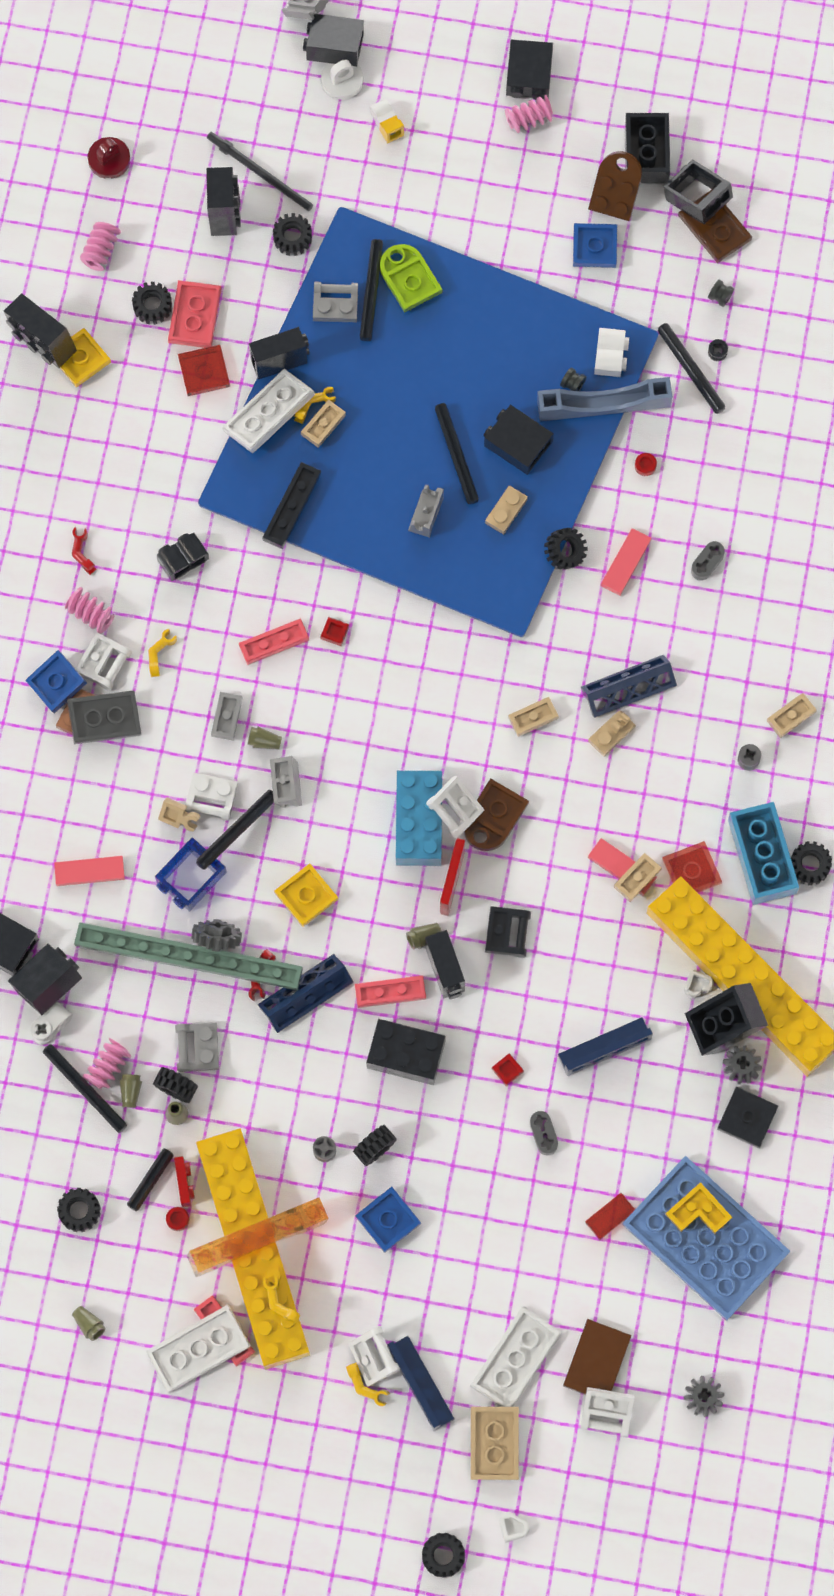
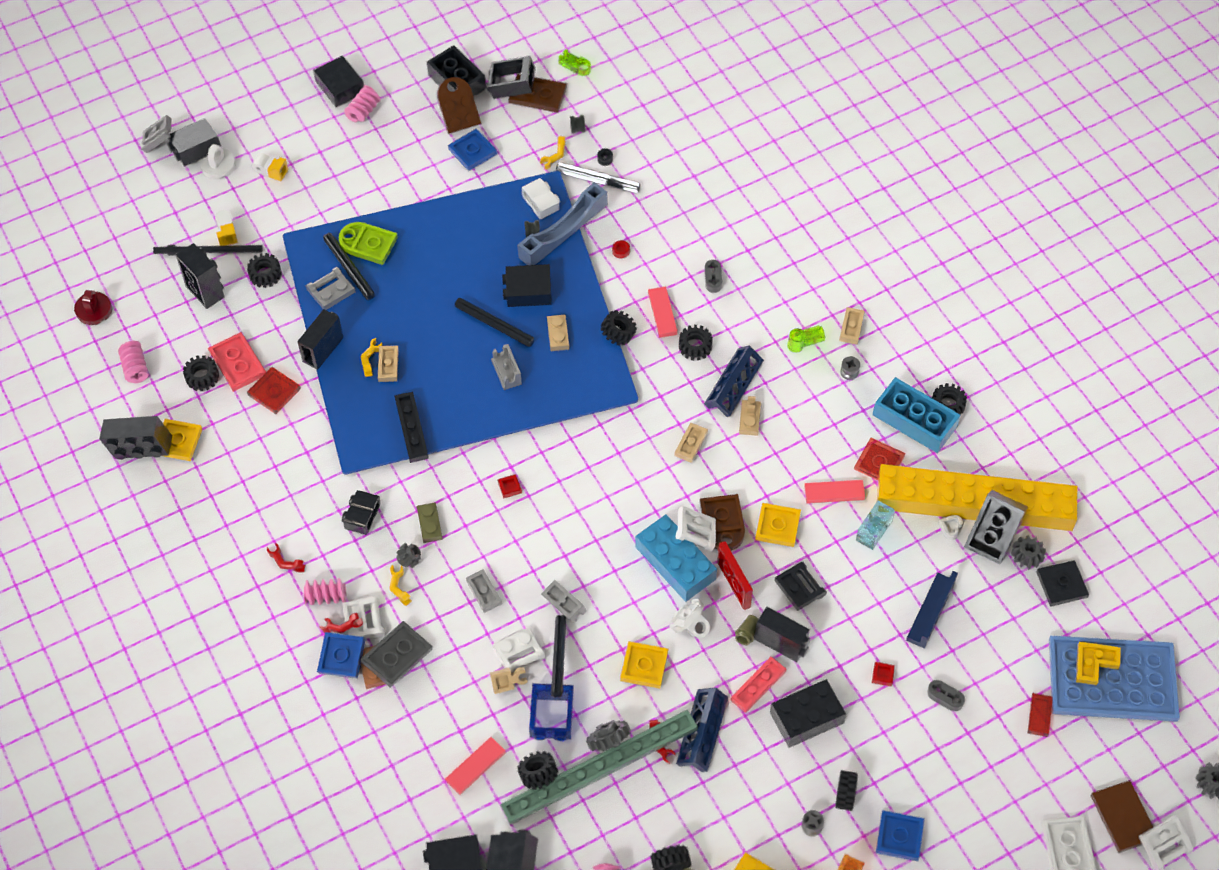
camera: 40 degrees left, 15 degrees down
(88, 659) = (345, 626): none -> red arm
(133, 927) = (537, 770): none -> black tyre
(188, 631) = (408, 555): none -> dark grey gear
(205, 1047) = (664, 820): light grey plate -> none
(235, 612) = (429, 522): none -> olive plate
(263, 739) = (521, 587): olive cone -> none
(268, 411) = (343, 381): white tile -> none
(273, 641) = (473, 522): coral tile -> none
(293, 161) = (227, 234): none -> yellow leg
(379, 882) = (688, 617): none -> white tile
(540, 858) = (778, 524): none -> yellow plate
(623, 630) = (695, 351): none -> black tyre
(624, 929) = (875, 525): none -> clear light blue brick
(637, 877) = (852, 487): tan plate -> none
(686, 304) = (560, 153): none -> yellow arm
(737, 695) = (805, 338): none -> clear neon green piece
(780, 216) = (573, 63): none -> clear neon green piece

